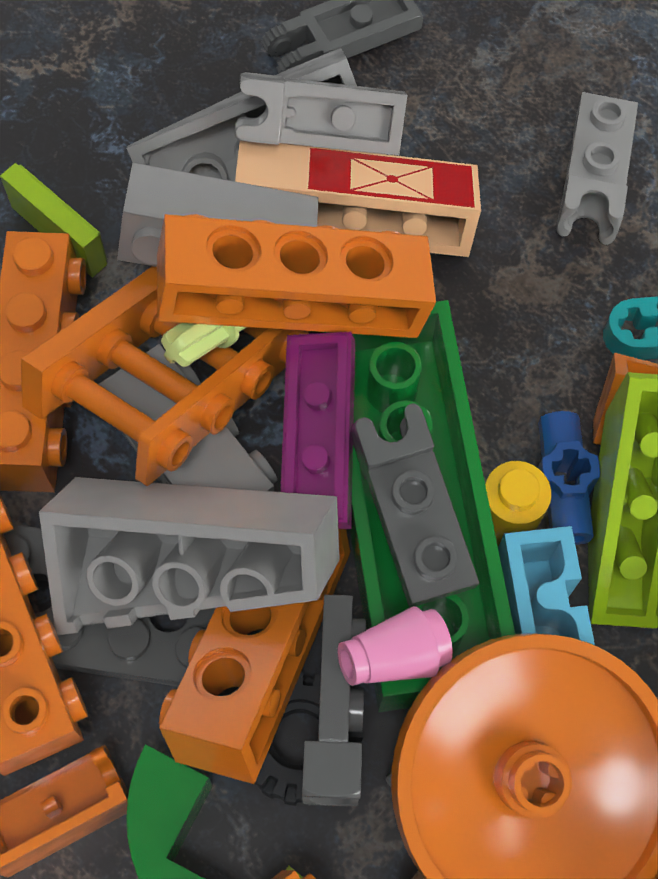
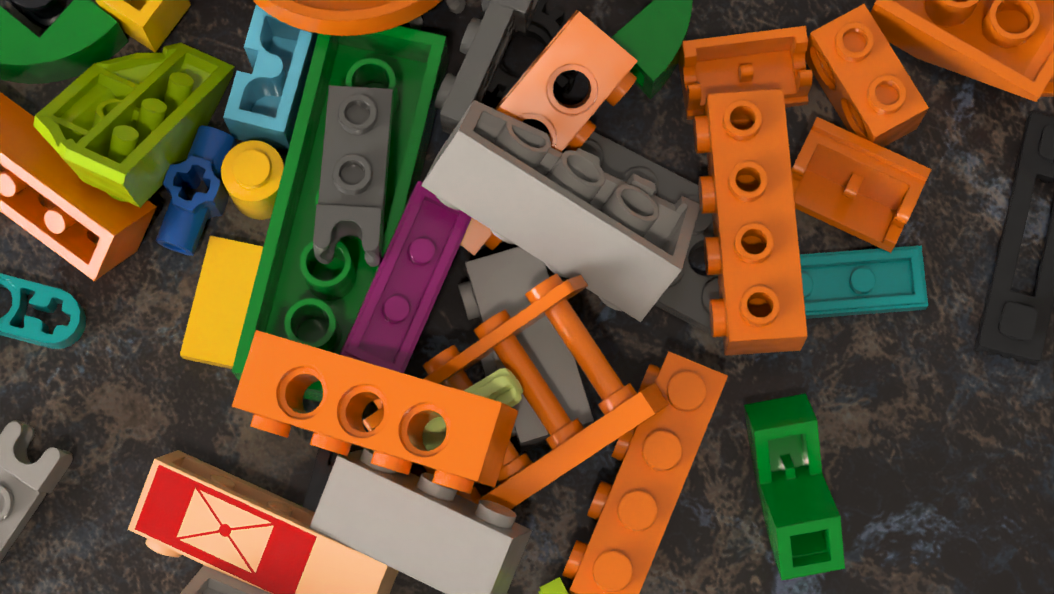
camera: 155 degrees left, 10 degrees up
(397, 649) = (421, 51): bright pink cone -> none
(494, 396) = (221, 302): none -> yellow tile

